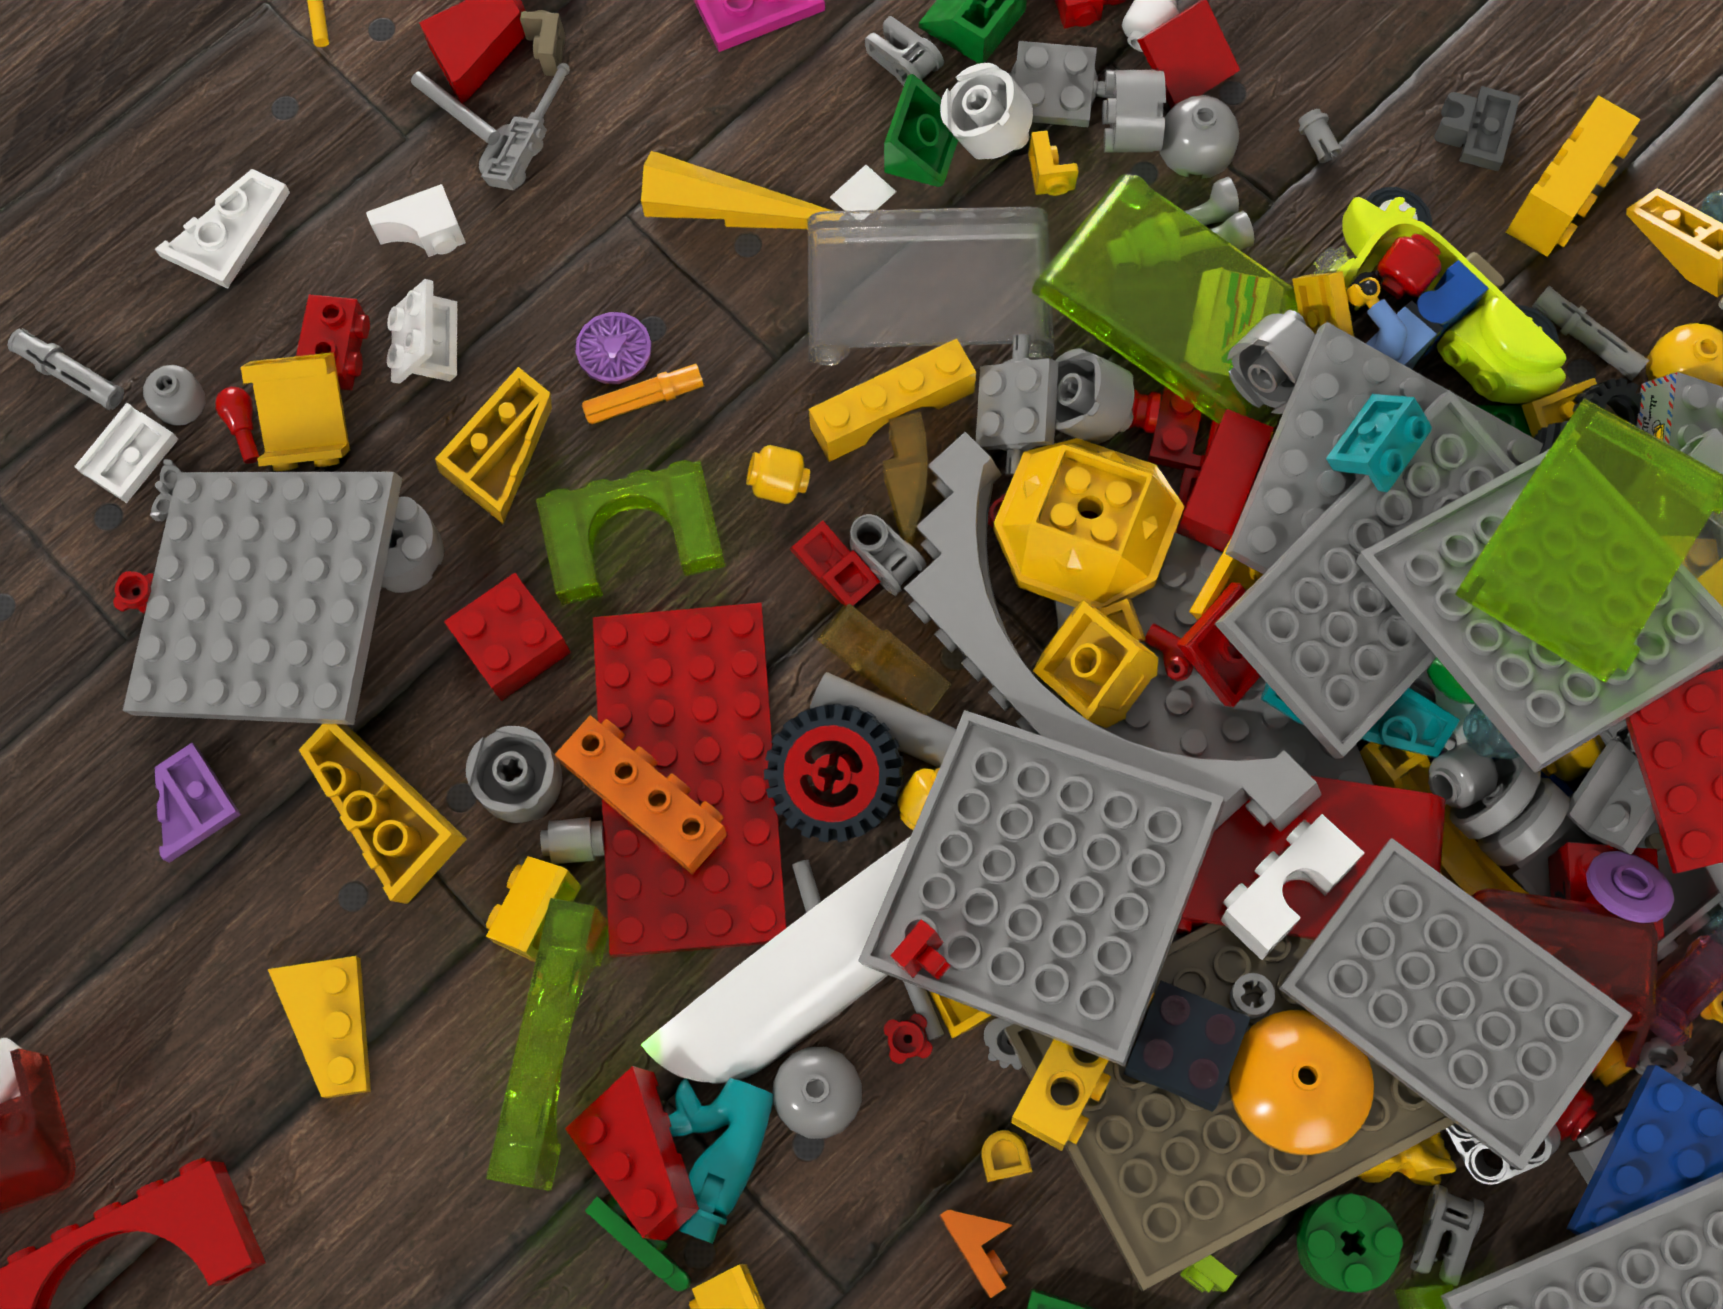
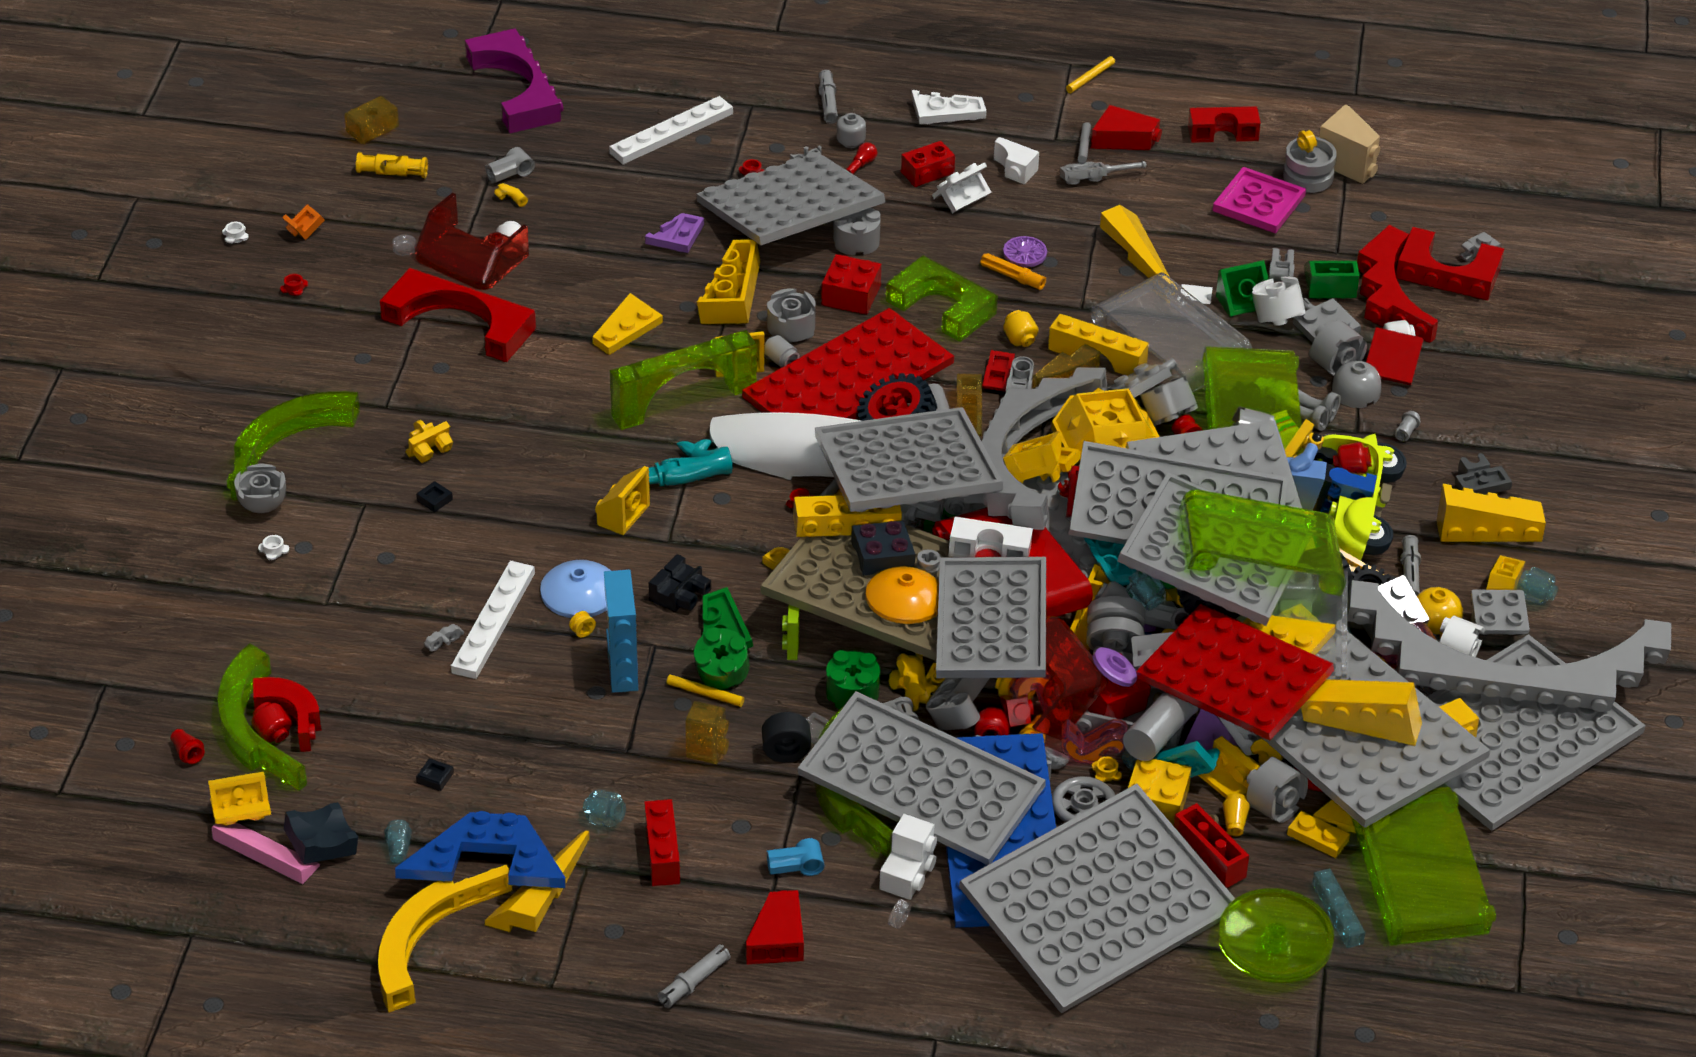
camera: 50 degrees right, 30 degrees down
(126, 453) = (810, 133): white plate -> none
(298, 410) = (888, 164): yellow panel -> none
(497, 444) = (938, 233): yellow wedge -> none
(547, 36) = (1153, 152): dark tan bracket -> none
(635, 1156) = (663, 429): red wedge -> none
(641, 793) = (822, 353): orange brick -> none
(648, 1251) = (629, 446): green hinge -> none
(817, 1092) = (747, 483): light grey cylinder -> none
(920, 952) = (836, 429): red tile -> none
(970, 1234) = (730, 562): orange slope -> none
(1045, 168) = (1278, 336): yellow bracket -> none
(1381, 439) = (1233, 461): teal bracket -> none

